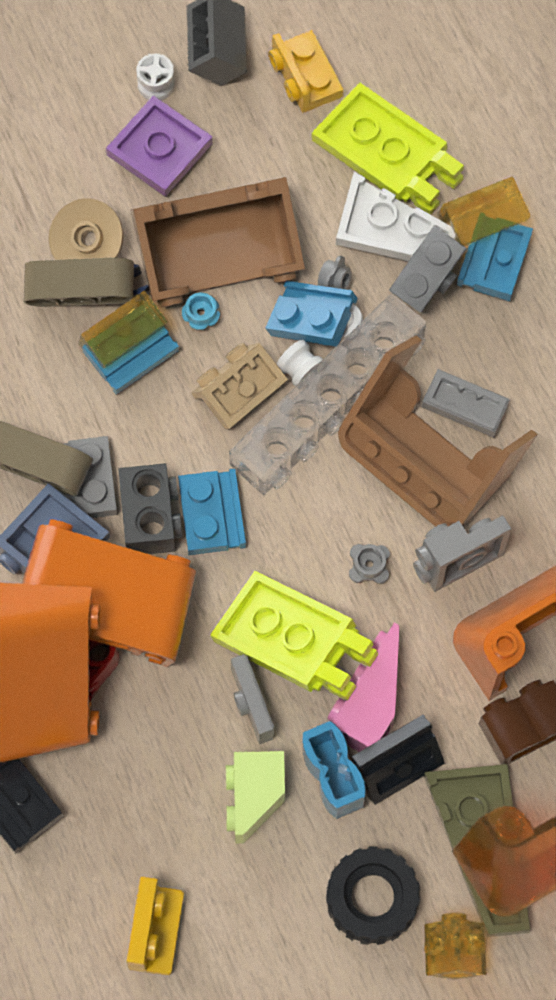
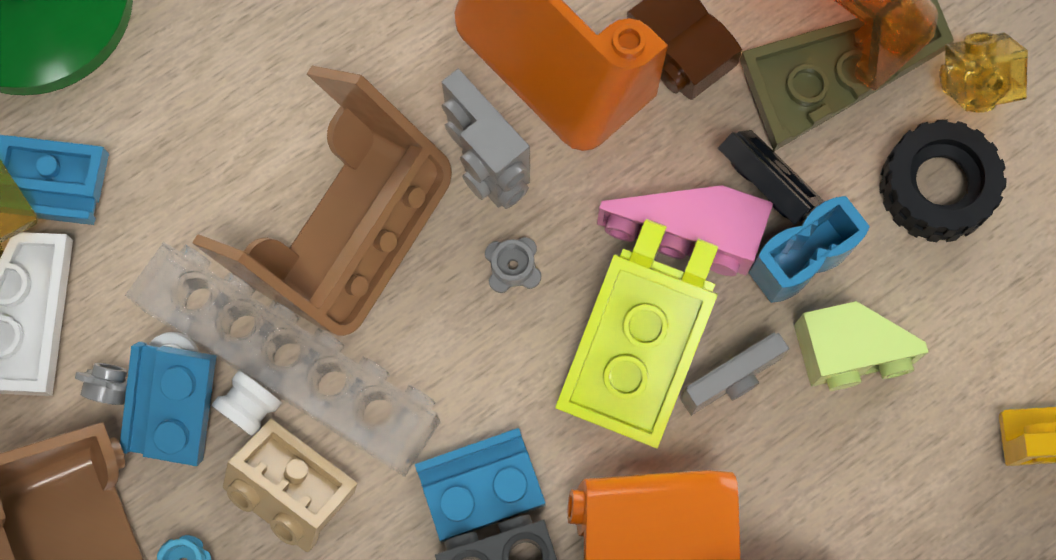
camera: 100 degrees left, 5 degrees up
(428, 270) = (83, 251): brick -> none
(465, 403) = (266, 182): light grey plate -> none

